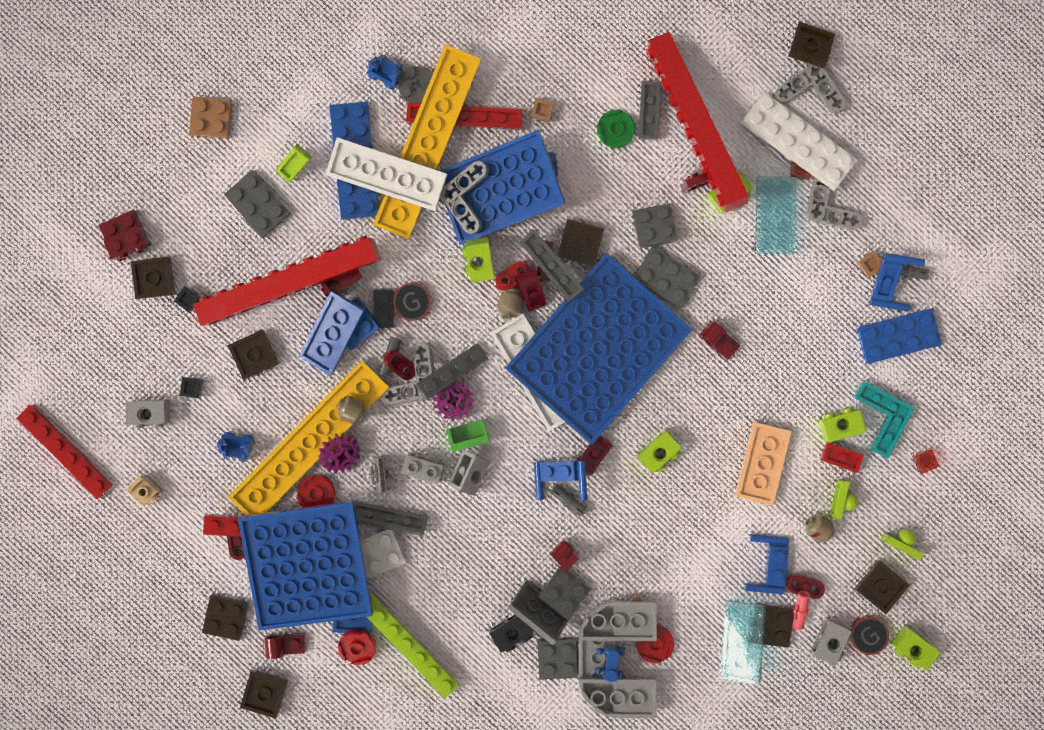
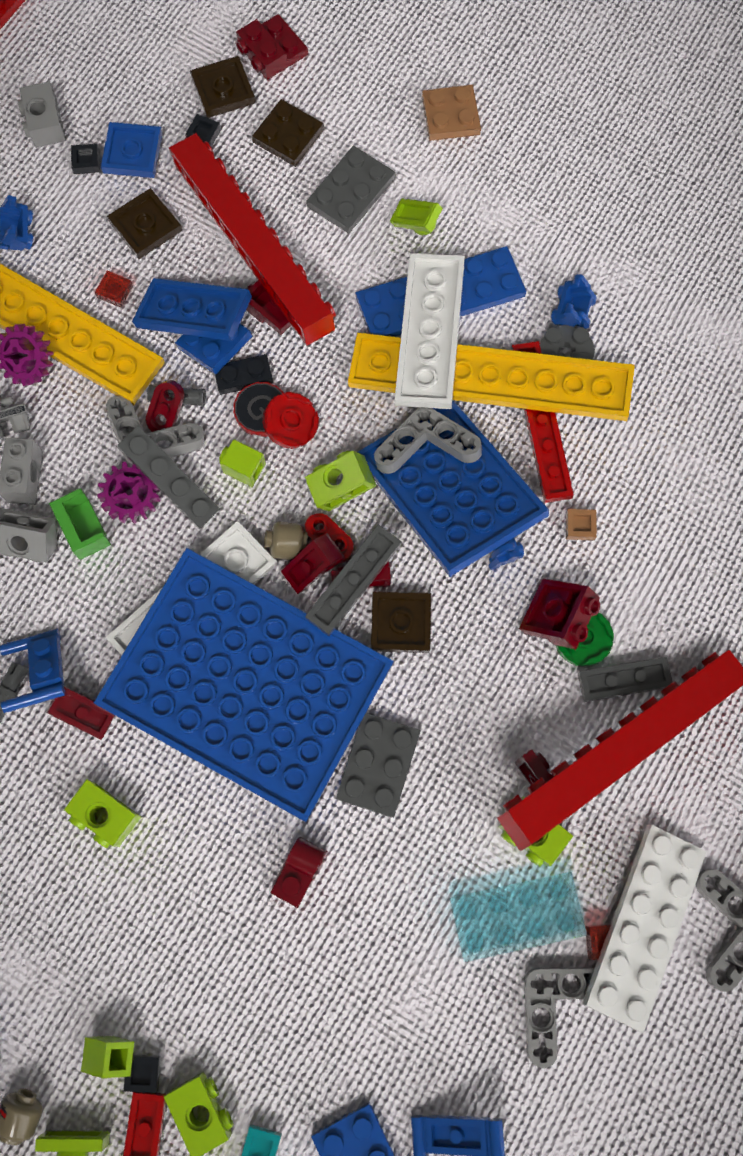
camera: 80 degrees right, 15 degrees down
(191, 353) = (131, 150): none -> blue plate
(200, 238) = (288, 132): none -> dark brown plate
(300, 385) = (113, 289): none -> clear red plate
(351, 409) = (87, 353): dark tan head -> none
(426, 283) = (290, 420): none -> red tile
(449, 322) = (242, 463): none -> lime brick
(599, 139) = (561, 613): none -> dark red plate
(654, 226) = (452, 727): dark grey plate -> none
(763, 463) = (112, 991): light nougat plate -> none
(799, 471) = (107, 1056): none -> lime brick
(812, 454) = (144, 1074): none -> black plate
(870, 264) = (478, 1099): medium nougat plate -> none

